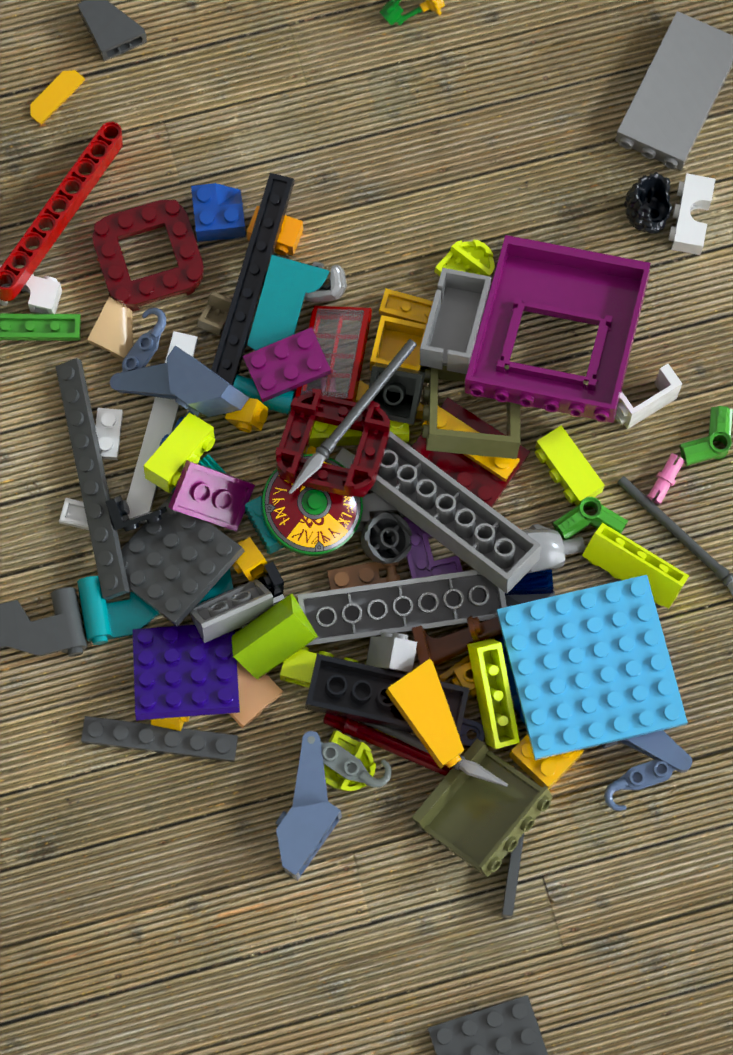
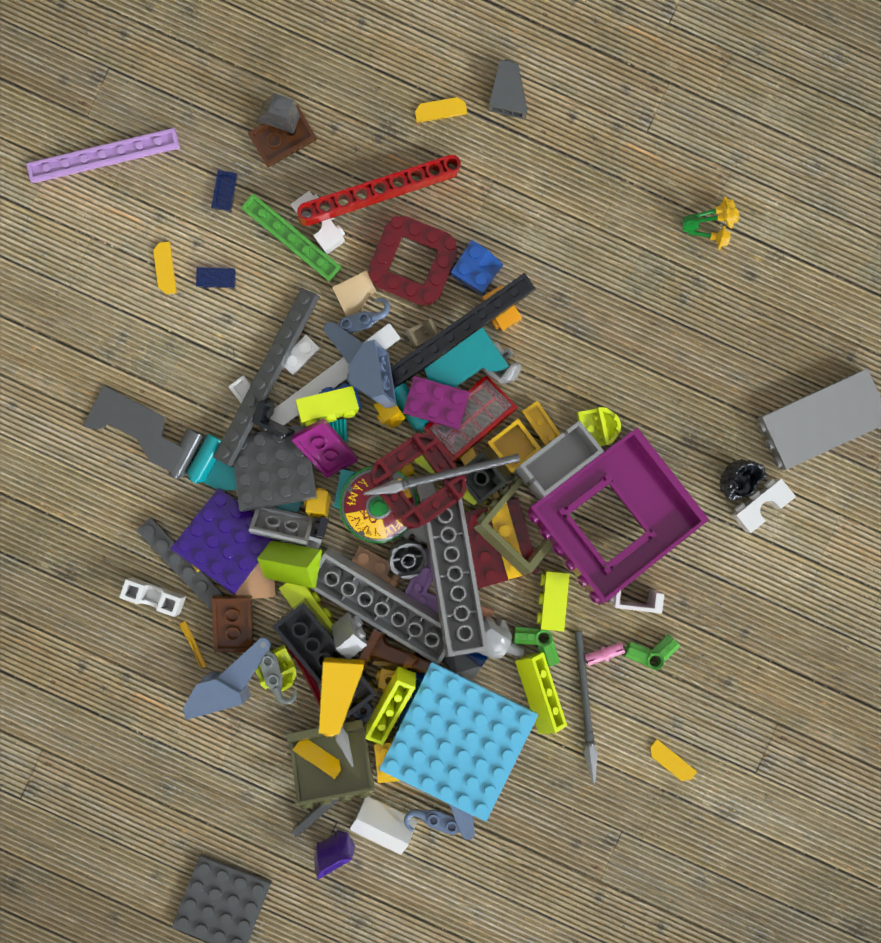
camera: 40 degrees right, 15 degrees up
(142, 796) = (146, 593): none -> white arch
(237, 813) = (193, 644): none -> yellow piece
(261, 751) = (232, 623): none -> reddish brown plate
(465, 813) = (318, 757): none -> yellow piece
(563, 902) = (333, 853): none -> dark purple slope
(593, 837) = (383, 825): none -> white slope

